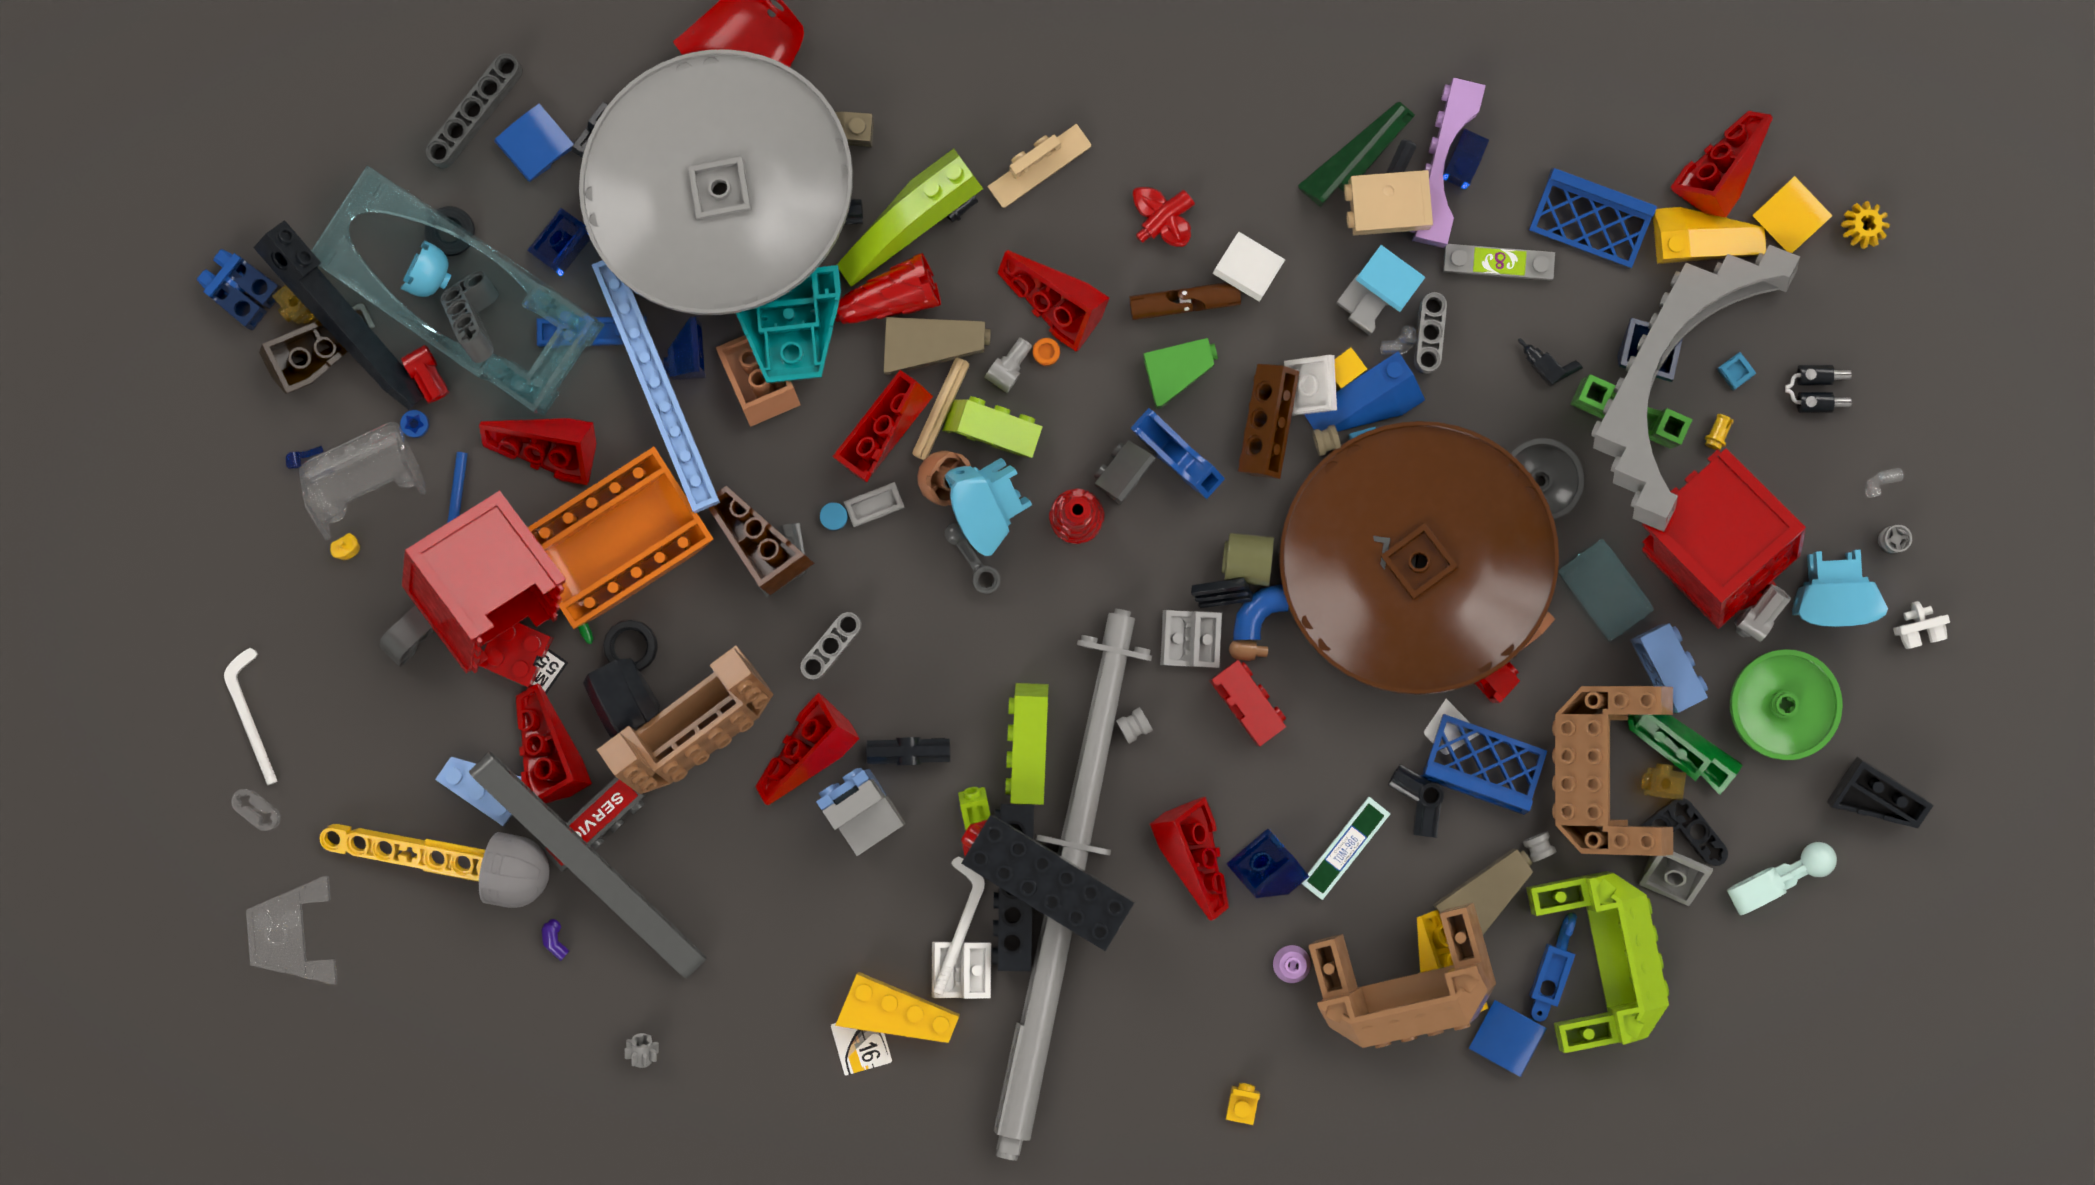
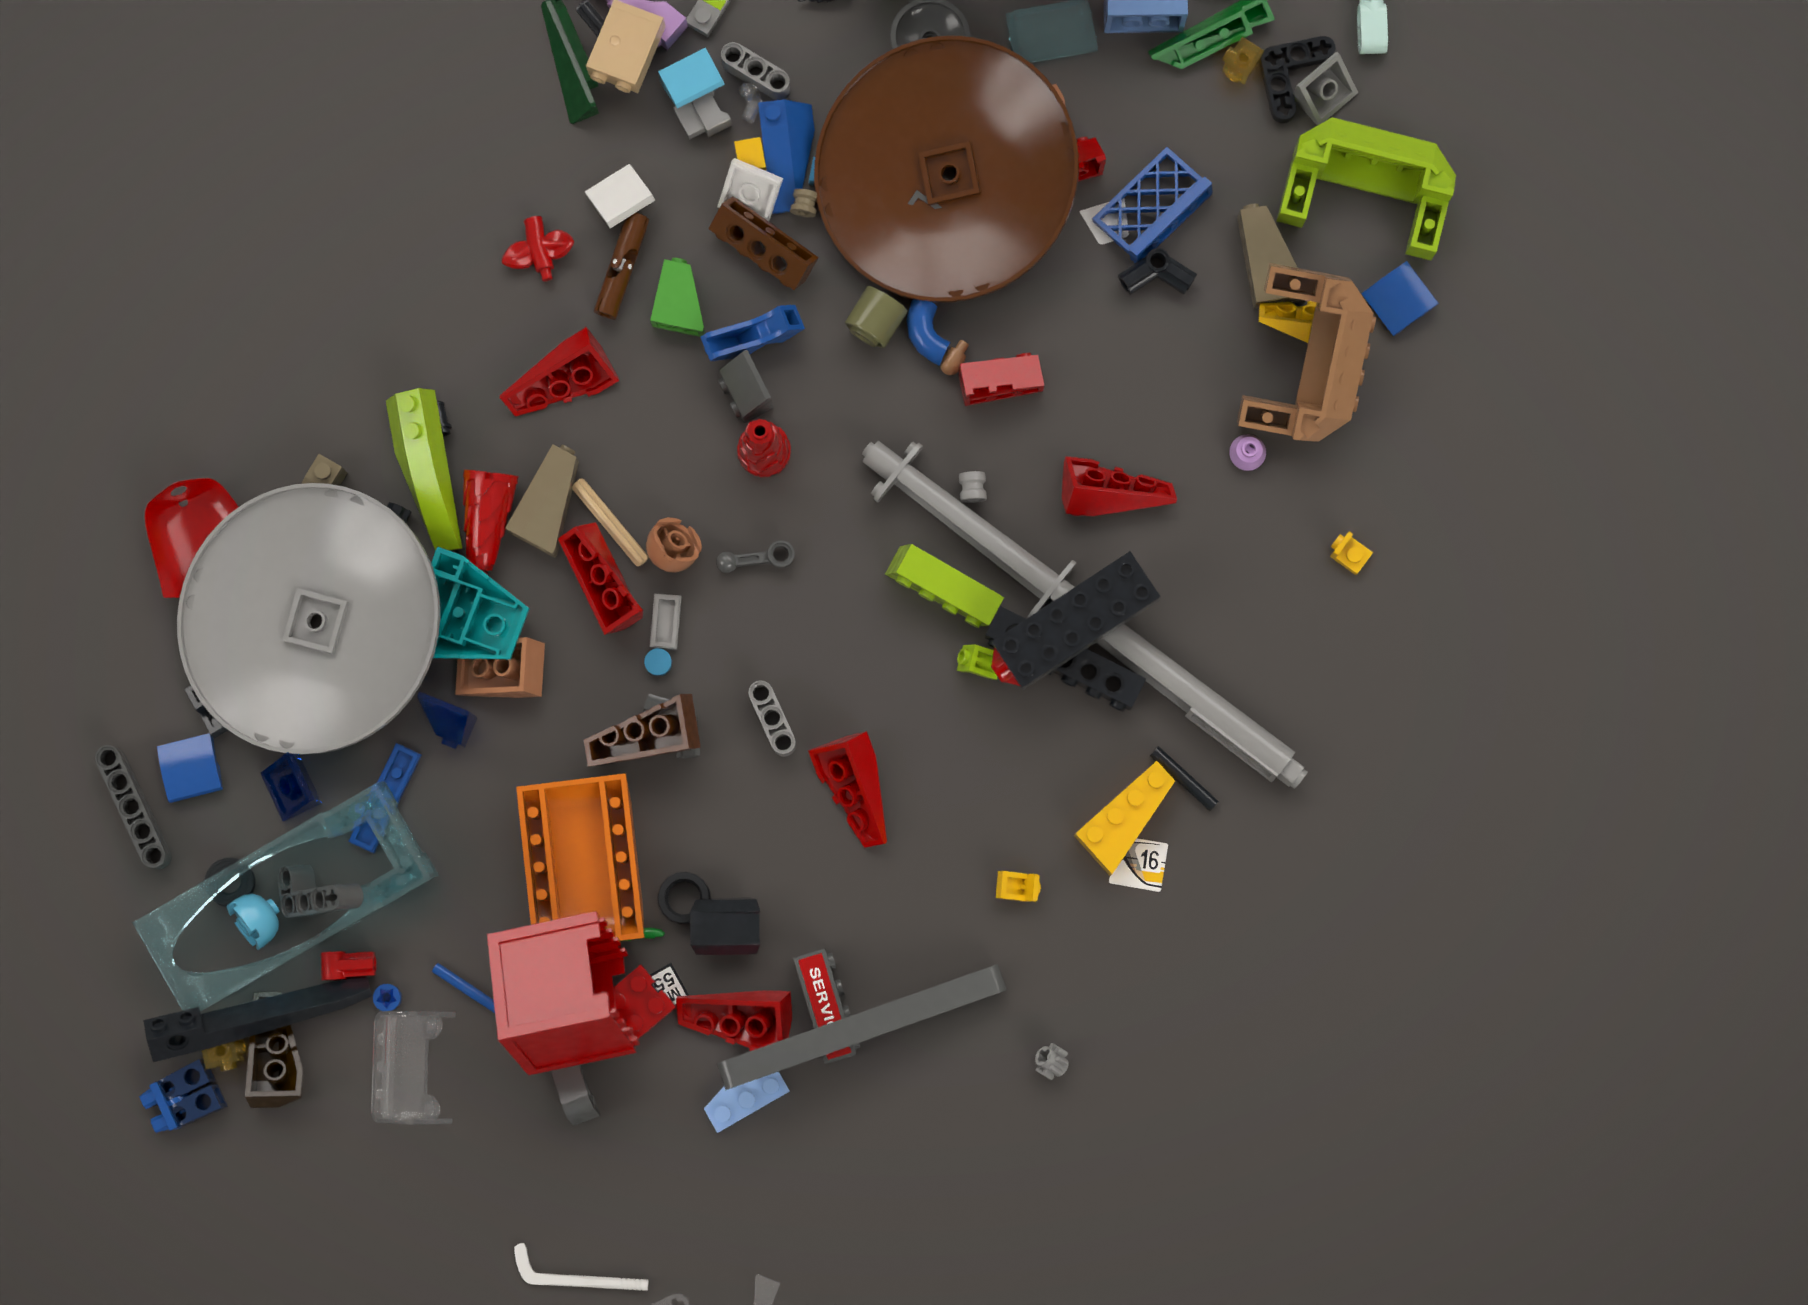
camera: 65 degrees left, 5 degrees down
(293, 459) = (364, 1123): clear blue hand -> none
(345, 547) = (467, 1114): yellow piece -> none
(508, 871) = (833, 1099): piece -> none
(550, 939) = (912, 1097): dark purple arm -> none
(556, 445) = (469, 880): red wedge -> none
(657, 389) = (464, 760): light blue plate -> none
(690, 726) = (781, 870): medium nougat wedge -> none
(785, 943) = (1017, 886): none -> yellow bracket
(860, 810) = (931, 757): light grey piece -> none
(908, 751) = (899, 695): black piece -> none
(958, 1048) = (1184, 778): none -> black piece
(963, 926) = (1049, 693): white piece -> none
(970, 973) = (1115, 742): white slope -> none
(985, 503) = (713, 517): medium azure piece -> none
(993, 426) = (648, 482): lime wedge -> none
(1005, 371) = (604, 448): light grey pin -> none
(1038, 164) = (438, 334): tan bracket -> none
(1046, 351) = (606, 407): orange tile -> none
(1191, 639) = (920, 403): light grey slope -> none
(1222, 593) = (893, 354): black tile -> none
(1267, 867) = (1153, 430): clear blue slope -> none
(1345, 847) = (1168, 358): tile -> none
(1539, 846) = (1246, 191): light grey wheel -> none
(1555, 967) = (1357, 228): blue piece -> none
(1584, 770) = (1198, 117): medium nougat wedge -> none

